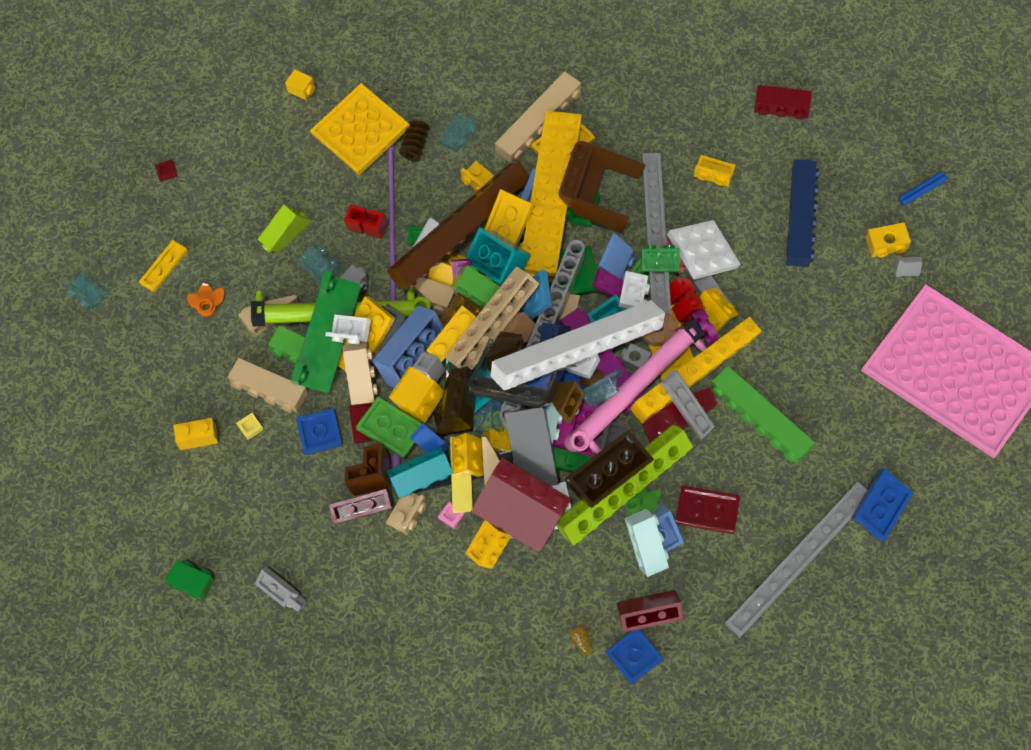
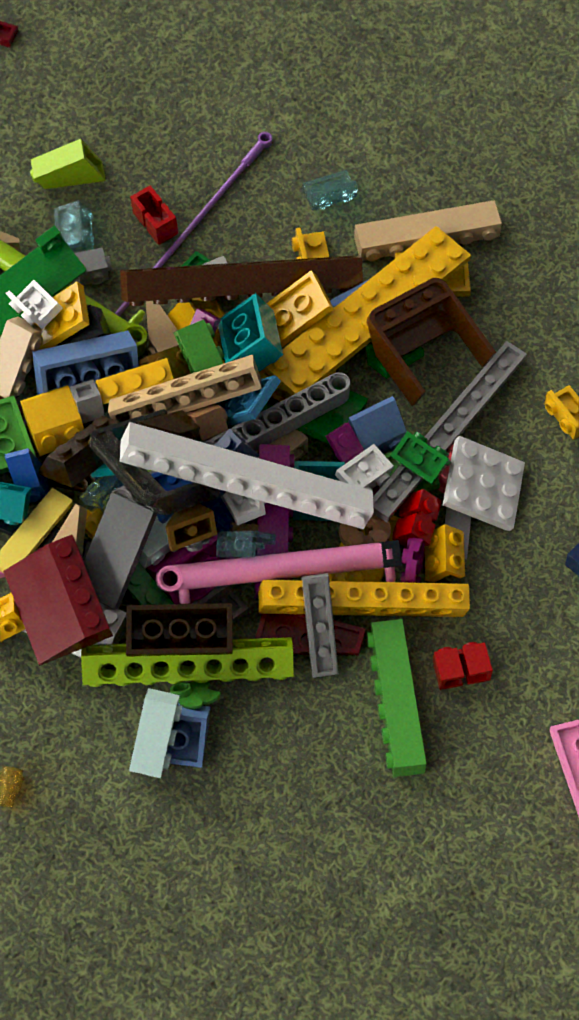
camera: 30 degrees right, 5 degrees down
(300, 85) = (207, 35): yellow brick -> none
(360, 129) = (230, 119): yellow plate -> none
(413, 140) = (274, 166): dark brown piece -> none
(467, 455) = (50, 515): yellow bracket -> none
(634, 350) = (311, 534): light grey brick -> none
(634, 656) = (48, 841): blue plate -> none
(649, 611) = (101, 806): dark red brick -> none
(707, 509) = (256, 753): dark red tile -> none
(785, 365) = (474, 662): none -> red piece
(796, 562) = (307, 872): light grey plate -> none
(882, 505) = (444, 882): blue plate -> none

